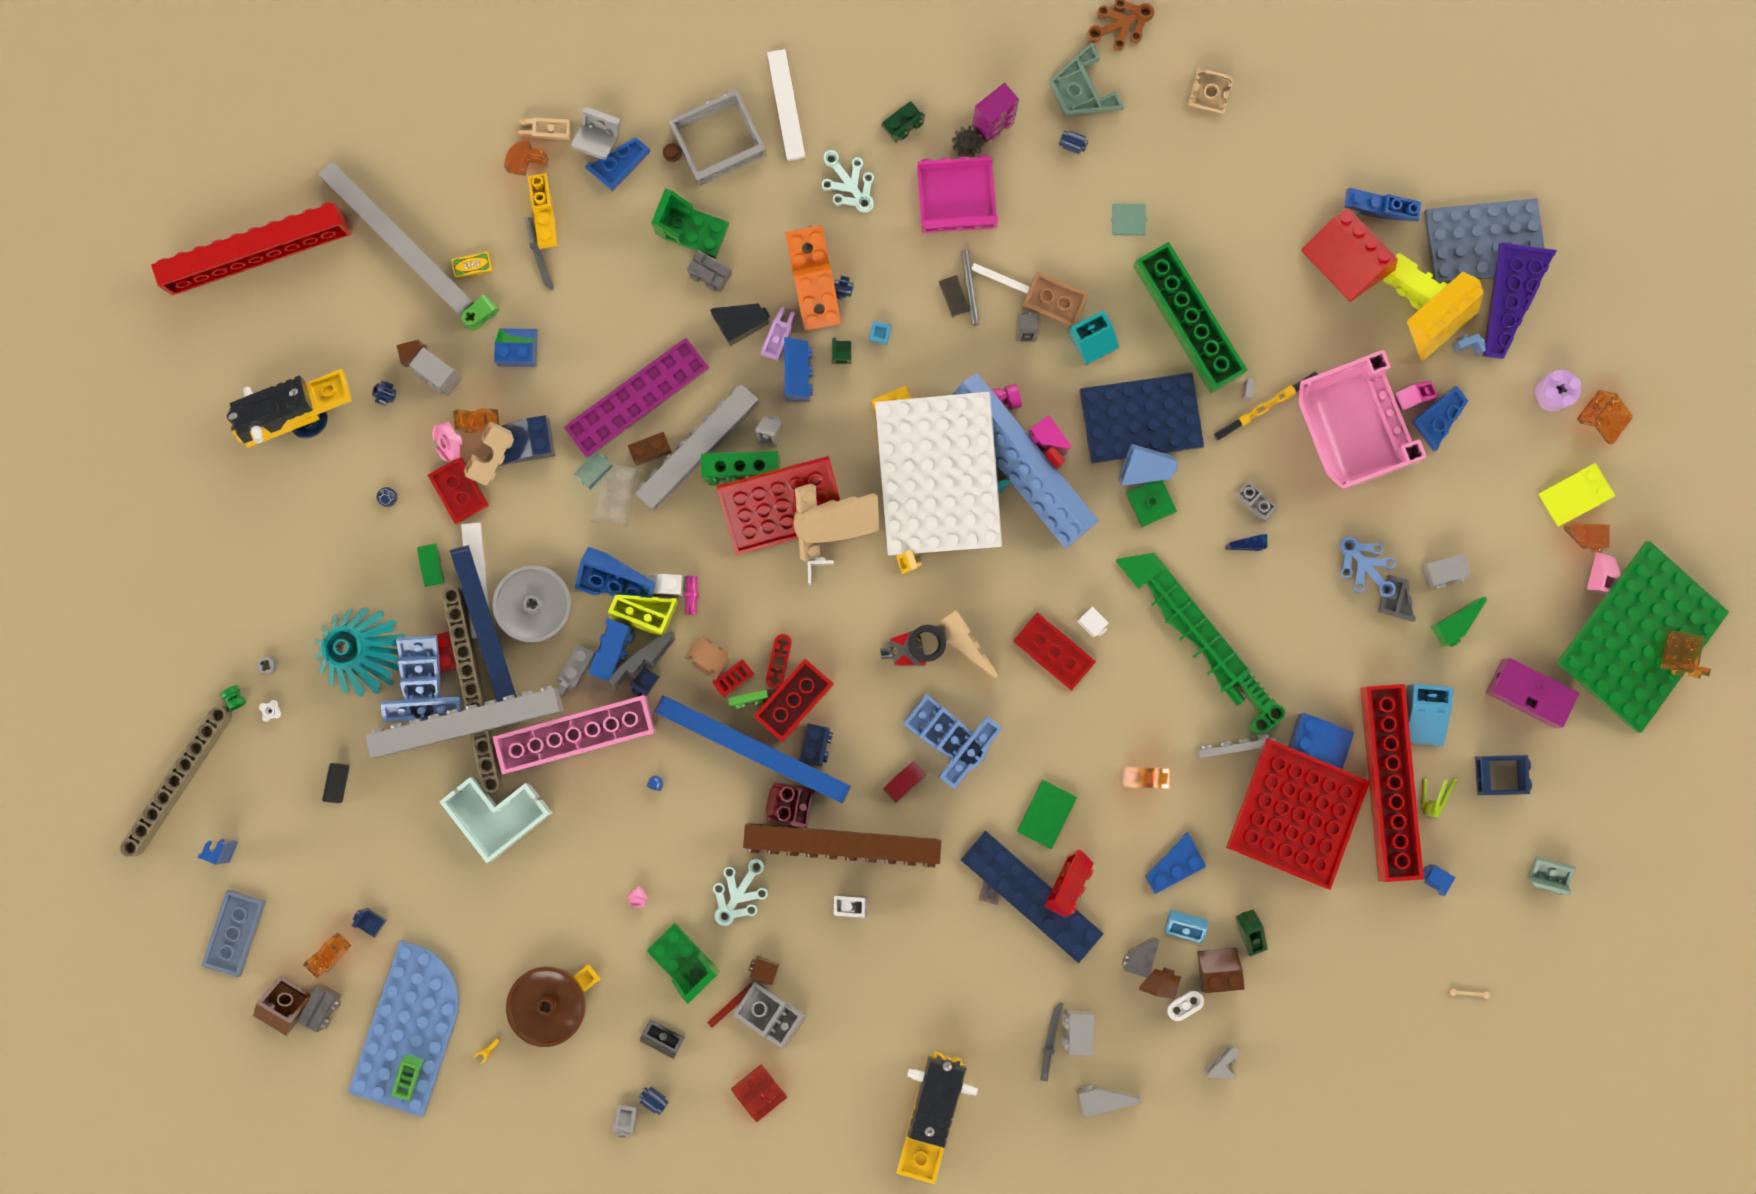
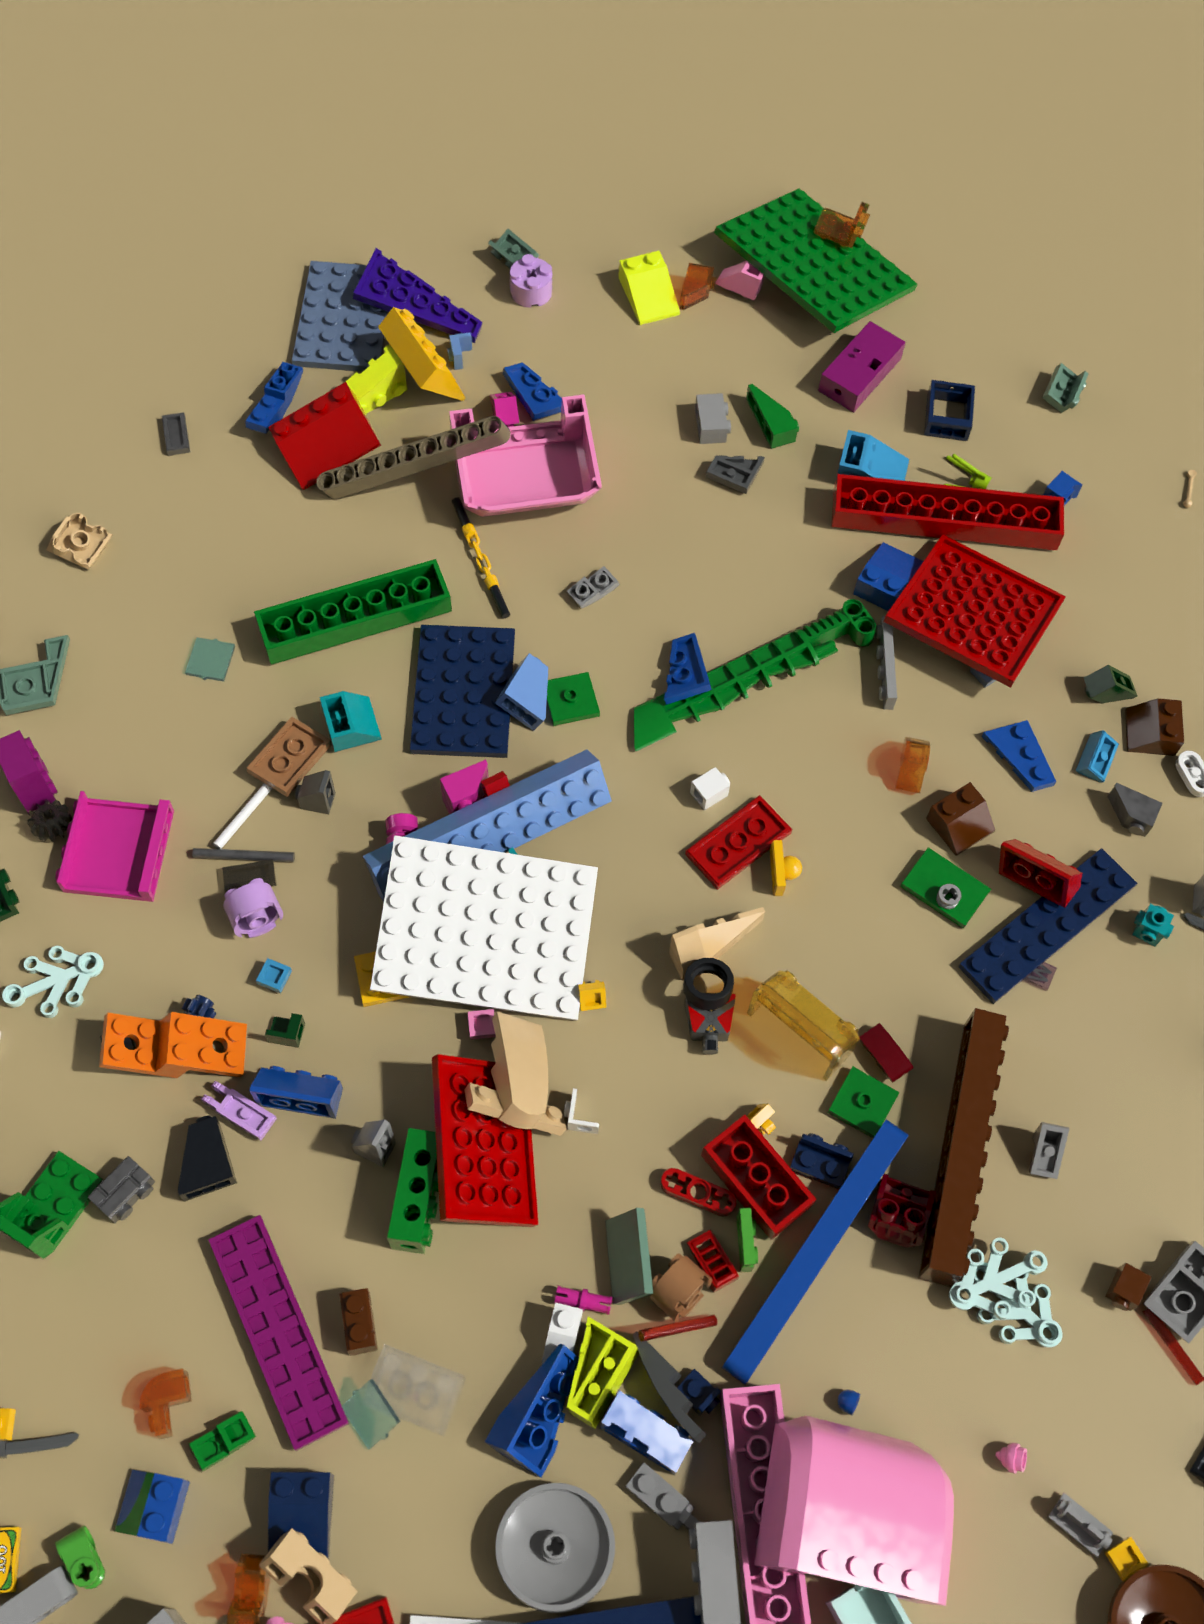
camera: 80 degrees left, 20 degrees down
(562, 380) = (222, 1441): none -> green slope
(581, 333) = (161, 1393): none -> clear orange brick
(581, 793) = (857, 1510): none -> bright pink slope
(603, 946) = (1081, 1525): none -> light grey hinge
(681, 660) = (677, 1328): none -> clear red bar
(683, 962) = (1116, 1400): green bracket -> none
(701, 441) = (374, 1254): light grey brick -> none
(722, 619) = (629, 1256): none -> sand green tile
(751, 874) = (995, 1281): none -> light aqua plant
(837, 696) = (759, 1117): none -> yellow tile
(865, 770) = (863, 1102): none -> green plate
(871, 485) = (481, 1024): none -> bright pink plate
(912, 717) = (807, 1018): none -> clear yellow windscreen
(924, 304) = (252, 908): none -> lavender brick
(951, 738) = (848, 969): medium blue slope -> none
(1031, 818) = (944, 890): none -> light grey bush
(1037, 687) = (782, 868): none -> yellow tile
(1041, 969) = (1153, 924): none -> teal brick
(1073, 142) = (92, 699): dark blue brick -> none
(1105, 821) = (961, 819): none -> reddish brown slope
(1161, 983) = (1169, 790): reddish brown slope -> none
(1191, 589) = (687, 670): none -> blue wing
(1248, 389) = (456, 569): light grey tile -> none
(1254, 543) = (643, 594): clear blue slope -> none
(1332, 135) = (176, 434): none -> flat silver tile
(1338, 337) = (378, 469): none -> dark tan beam
(1366, 564) = (691, 492): medium blue plant -> none
(1590, 368) = (511, 248): none -> sand green bracket
(1606, 414) = (564, 247): clear orange bracket -> none

